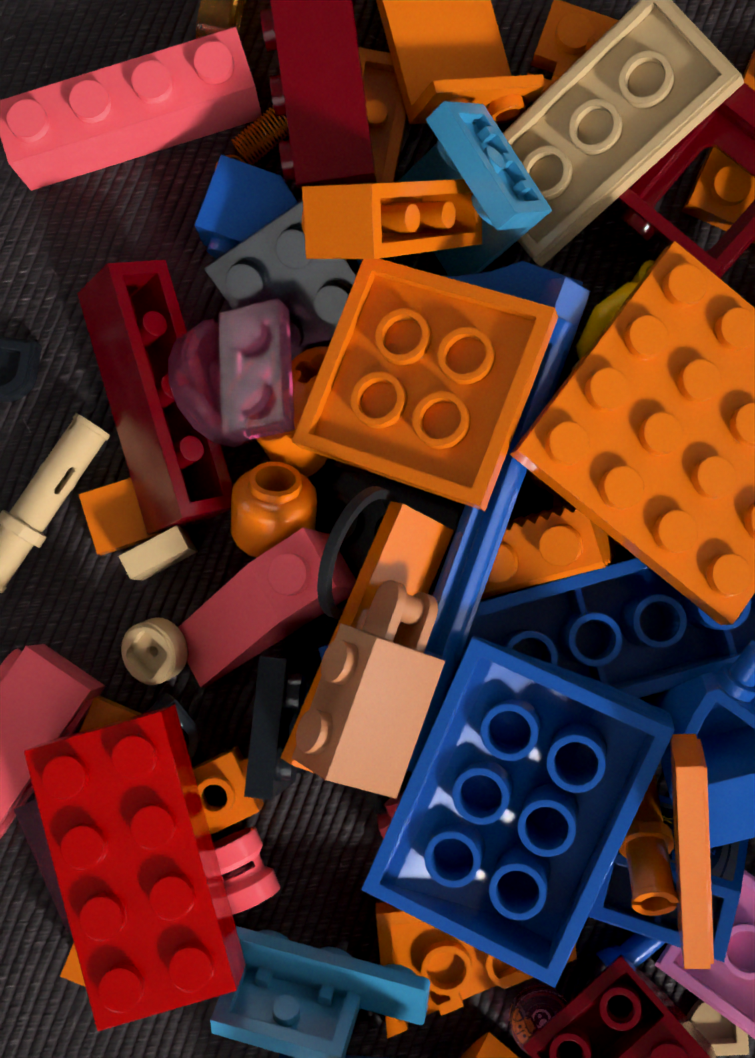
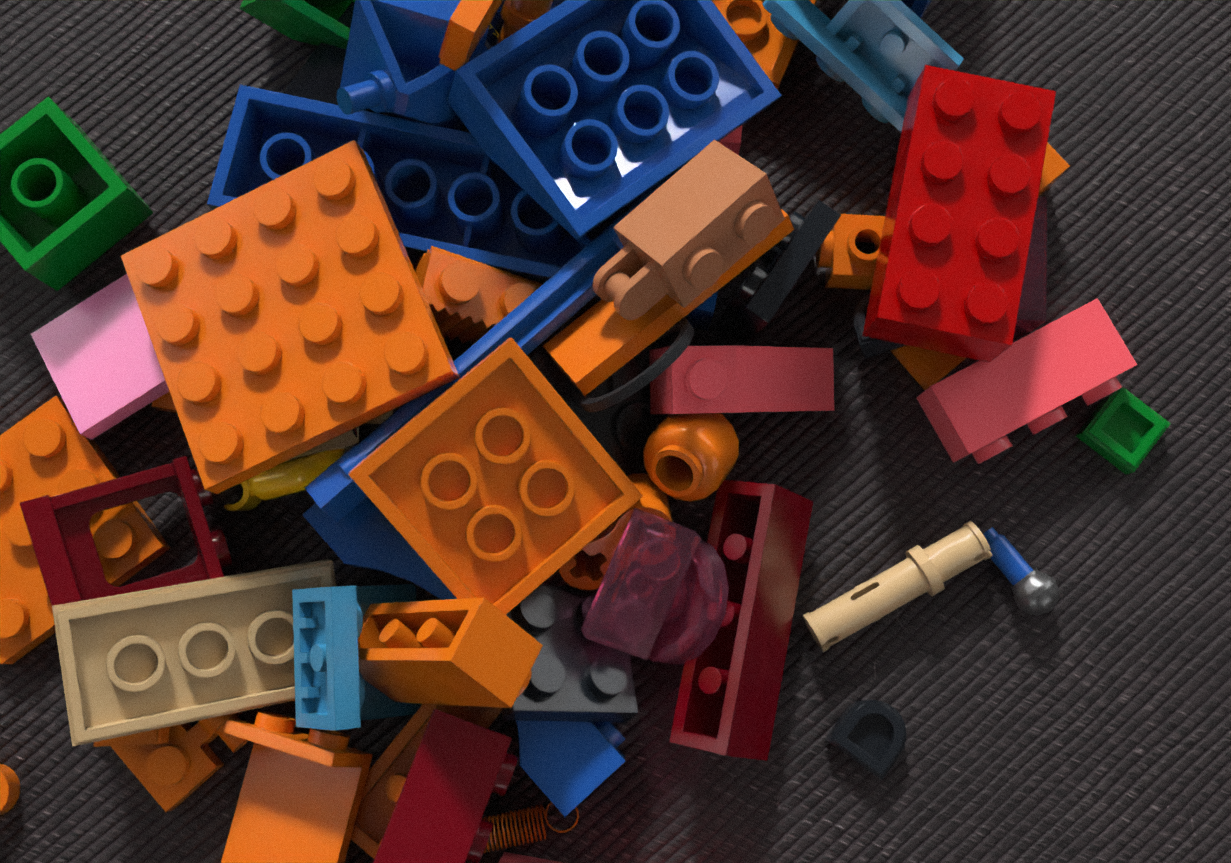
camera: 150 degrees left, 5 degrees down
(114, 517) = (835, 539): orange tile -> none
(154, 651) = (857, 400): tan tile -> none
(158, 553) = (814, 479): tan tile -> none
(245, 881) = (872, 173): coral wheel -> none

